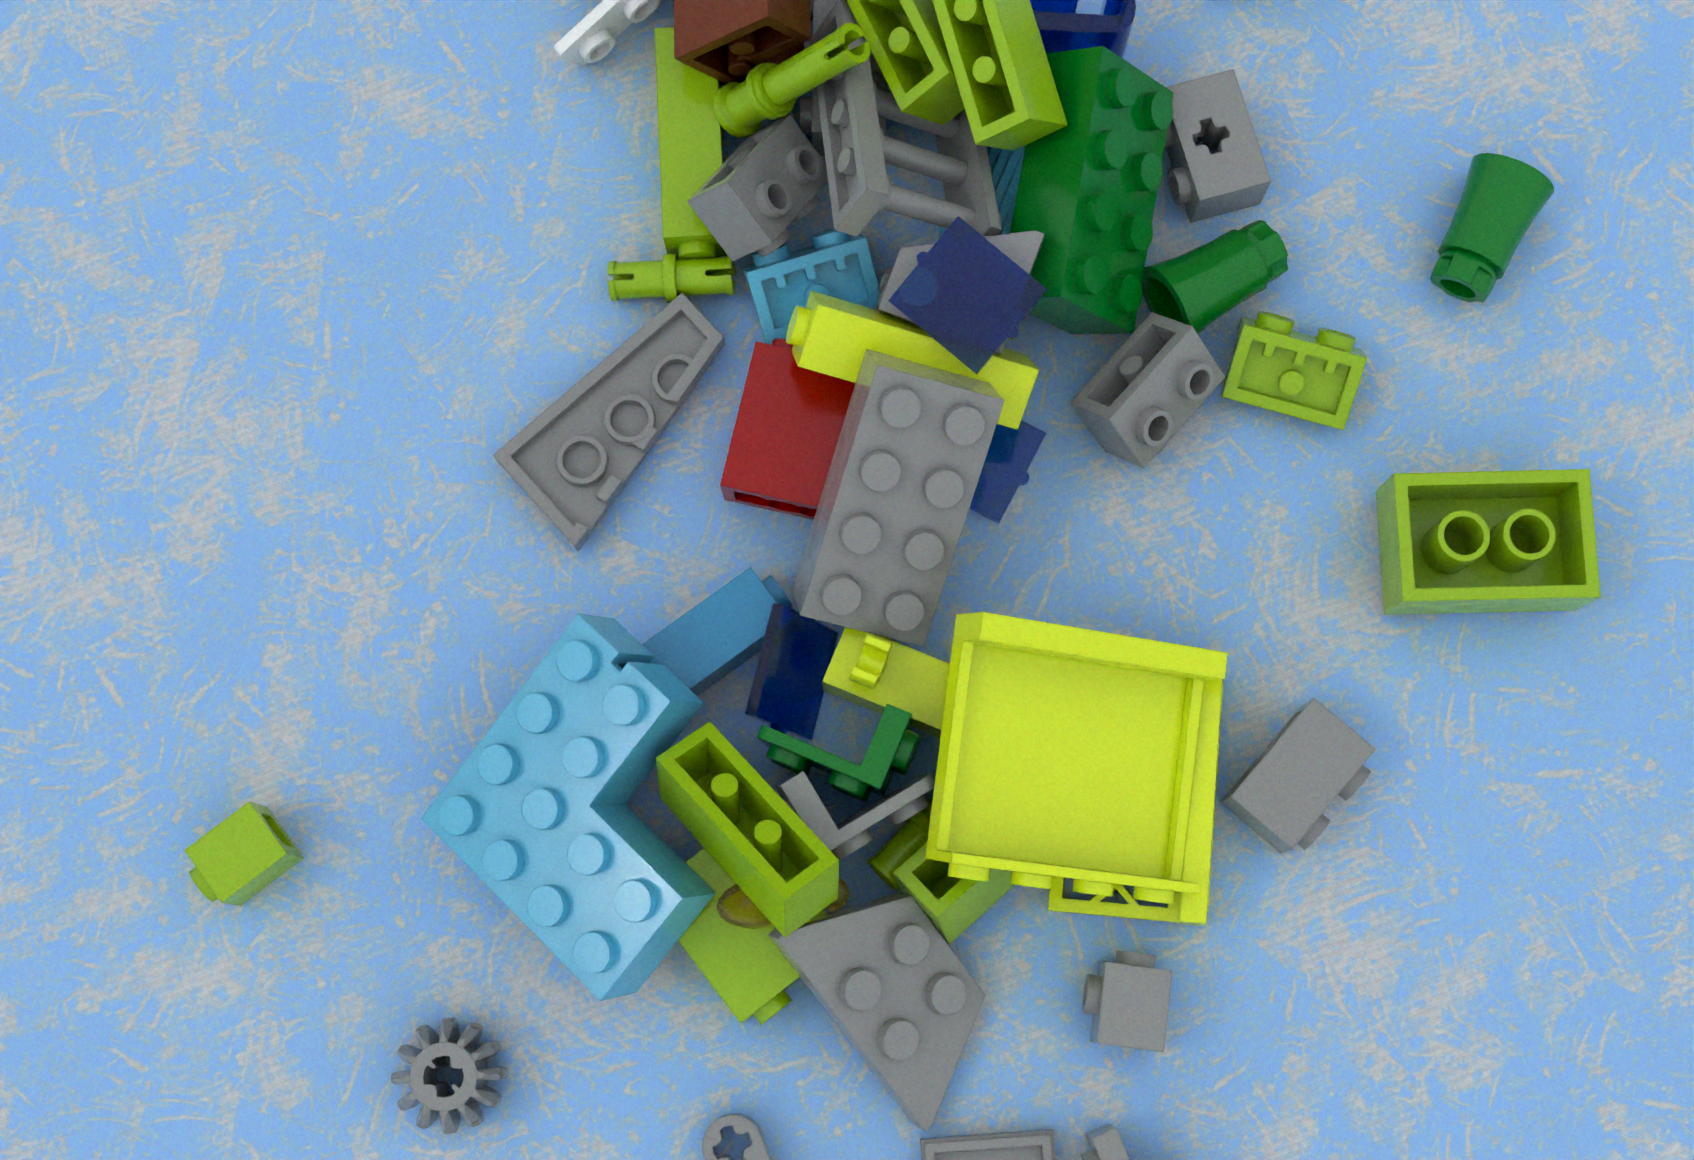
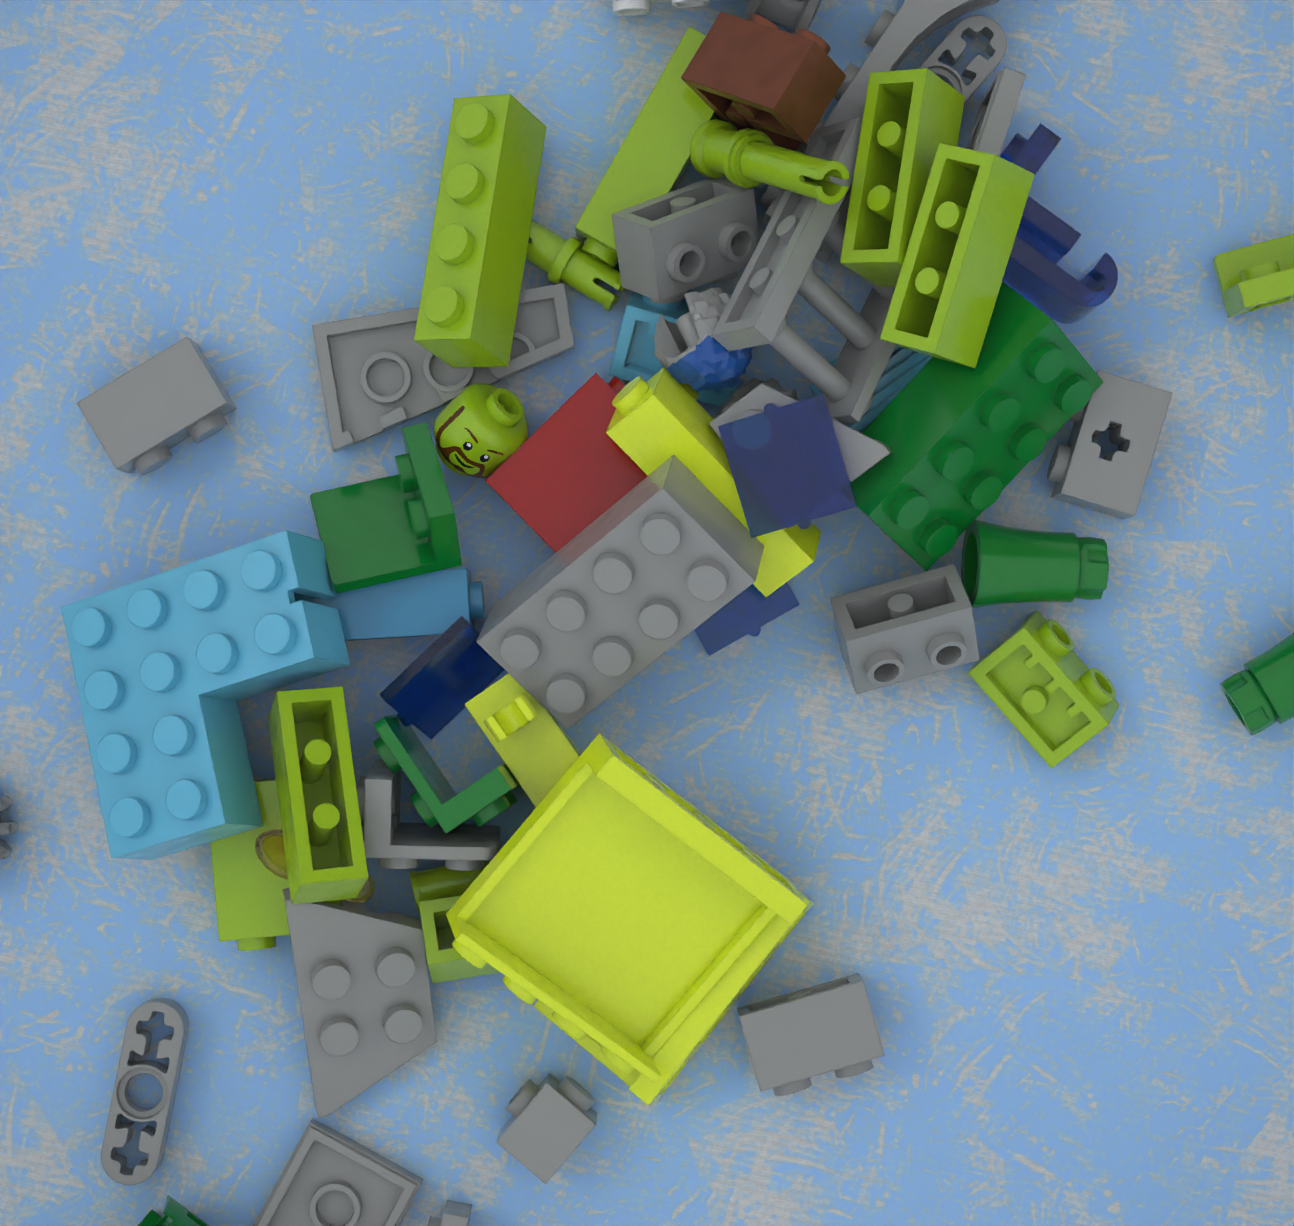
camera: 30 degrees right, 10 degrees up
(403, 604) = (158, 408): none -> light grey brick
(588, 288) = (480, 232): none -> lime brick
(669, 569) = (390, 523): none -> green bracket
(688, 450) = (480, 430): none -> lime head
(828, 258) = (692, 352): none -> piece
(1487, 542) = (1100, 945): lime brick -> none

